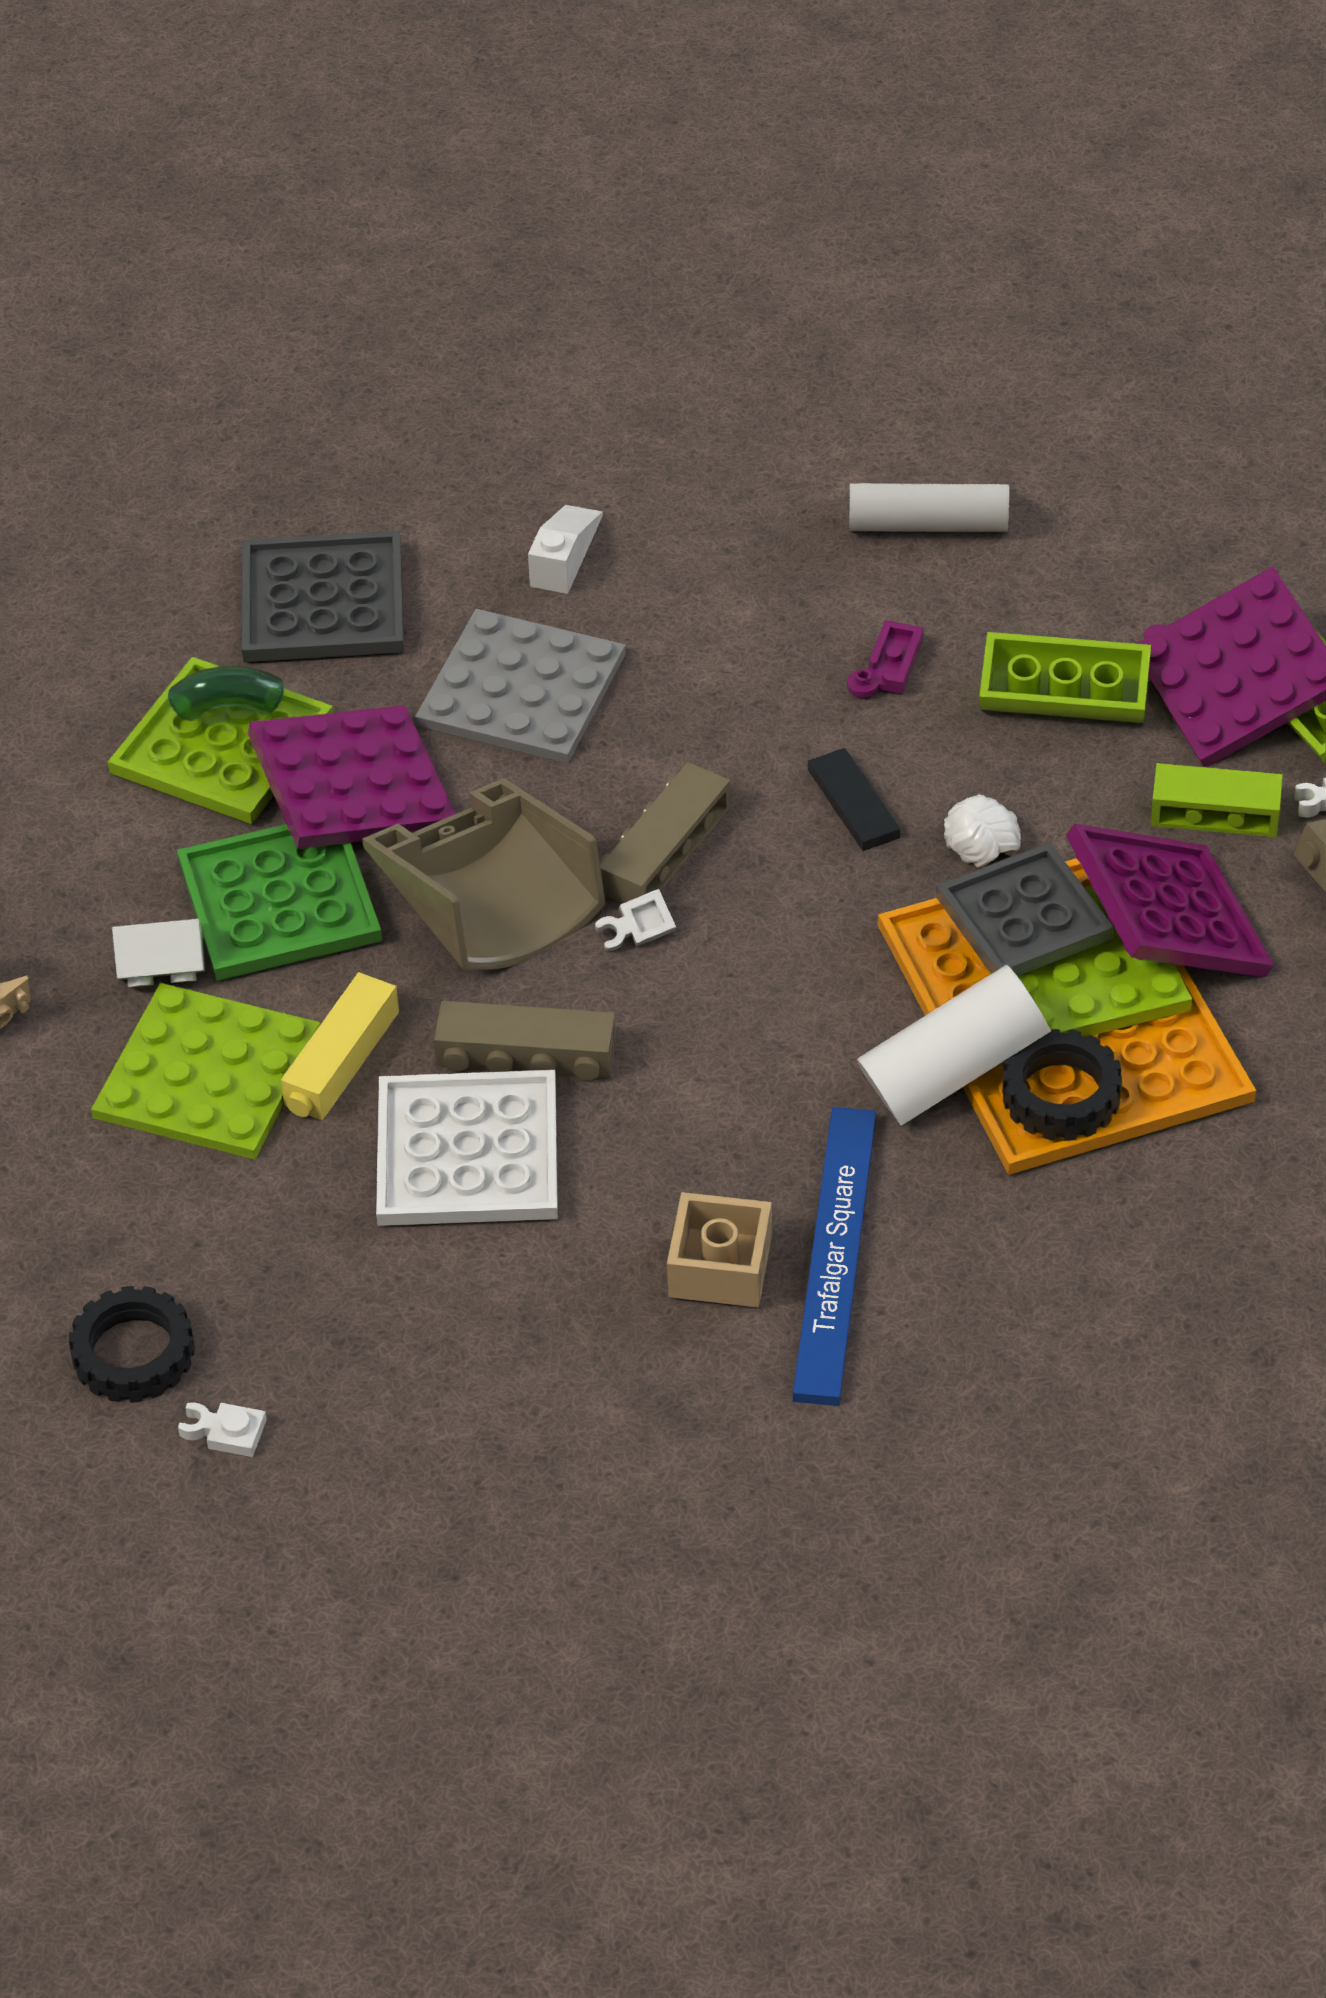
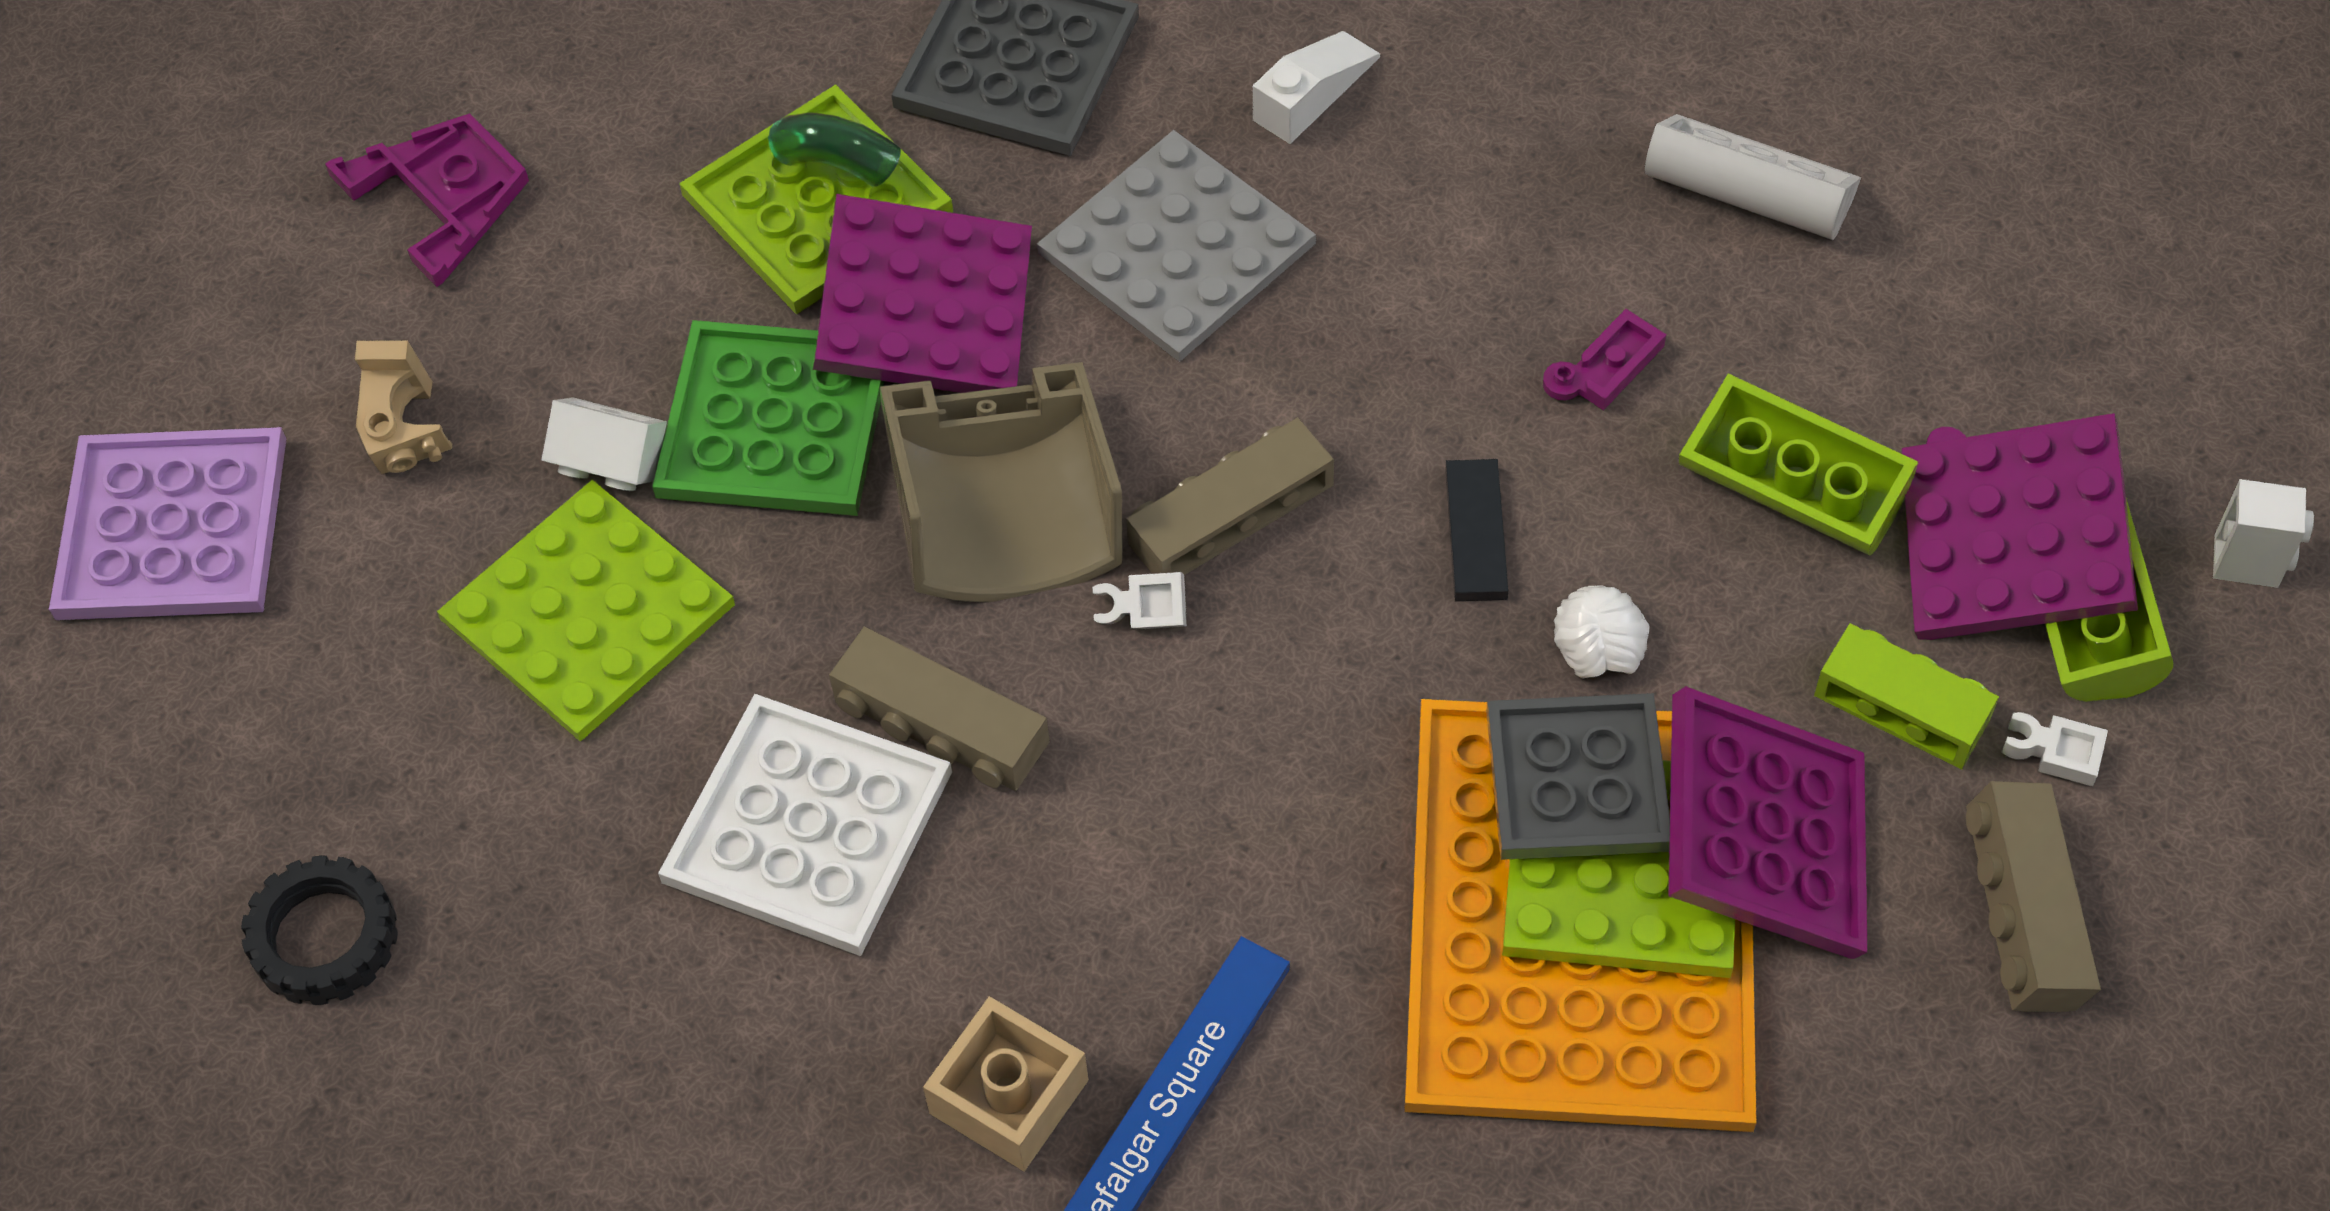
camera: 25 degrees right, 10 degrees up
(229, 1430) = (367, 1083): white plate -> none
(339, 1046) = (733, 638): light yellow brick -> none
(953, 1044) = (1408, 921): white brick -> none
(1063, 1119) = (1532, 972): black tyre -> none

